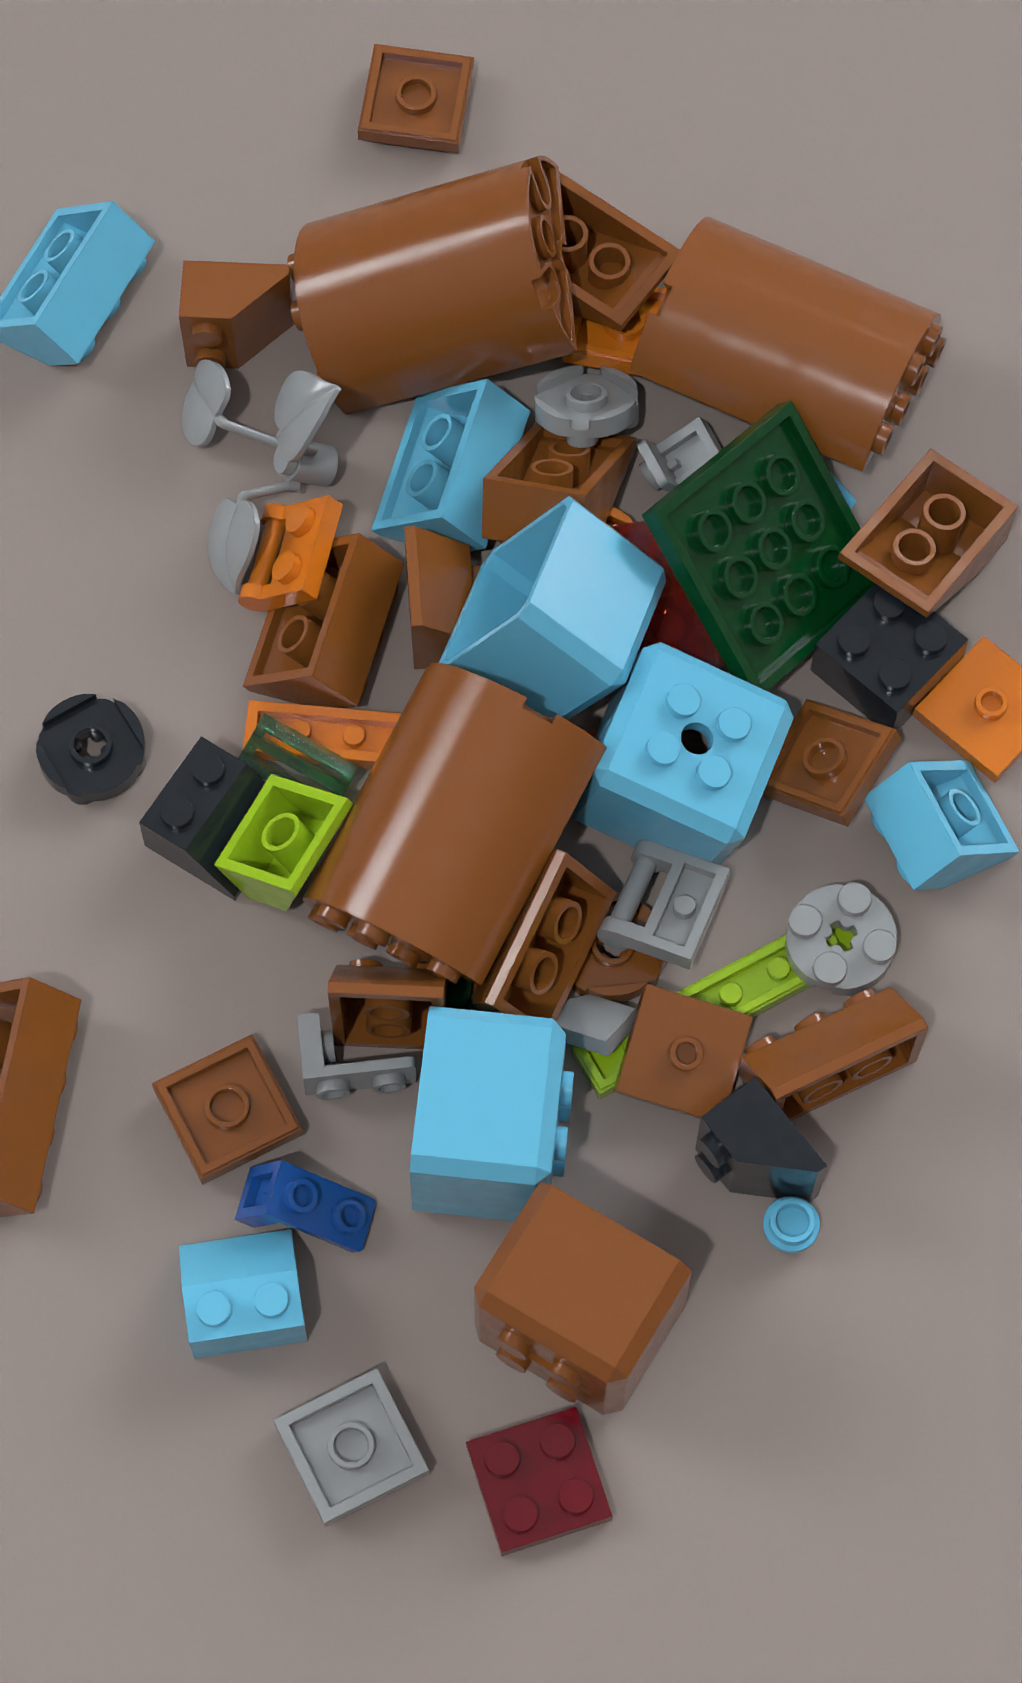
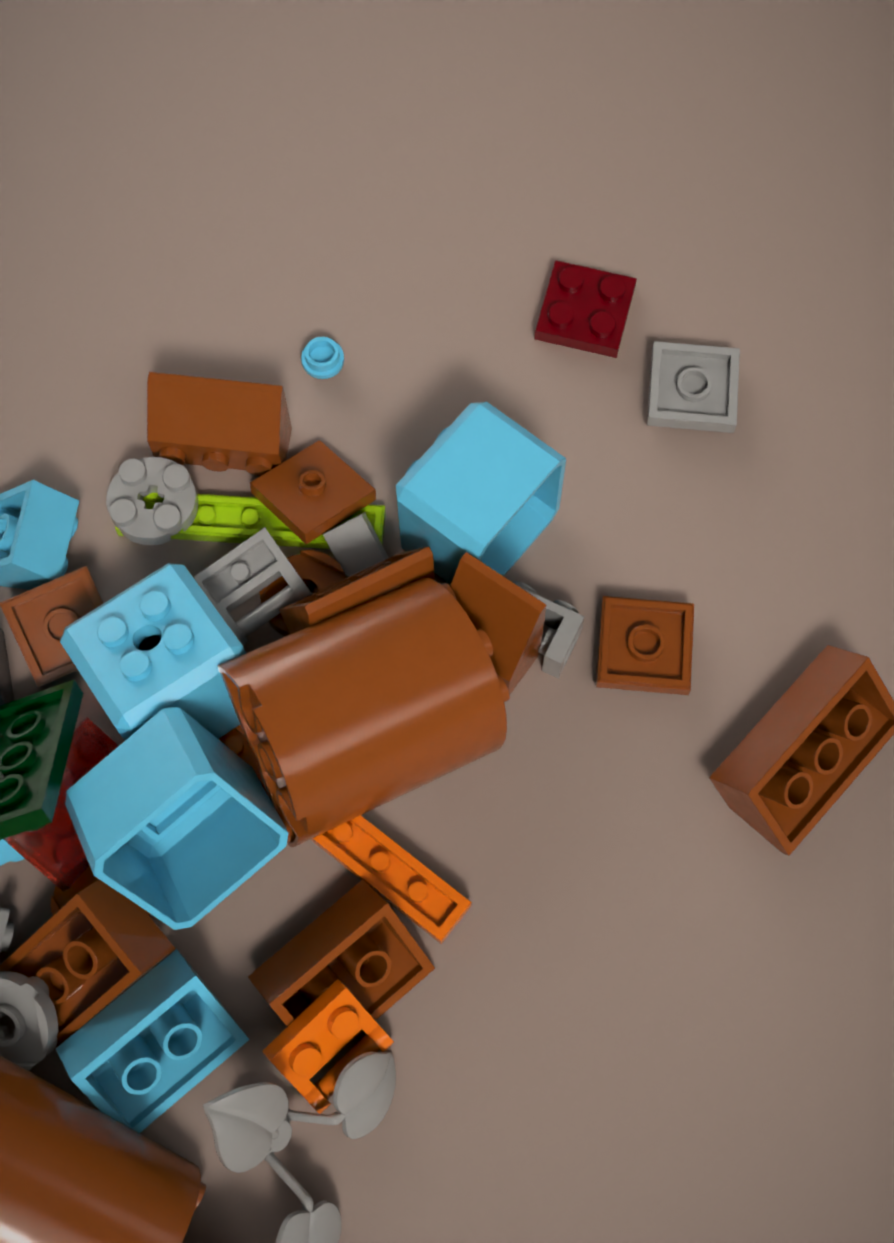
camera: 145 degrees left, 0 degrees up
(86, 777) = (564, 1006): black plate -> none
(201, 812) = (526, 862): black slope -> none
(241, 1294) = (708, 516): medium azure slope -> none
(281, 840) = (487, 789): lime slope -> none
(301, 743) = (431, 862): clear green tile -> none
(307, 1203) = (638, 544): blue bracket -> none
(437, 590) = (243, 927): dark orange slope -> none
(578, 1300) = (500, 344): dark orange plate -> none
(757, 1148) = (314, 394): black slope -> none

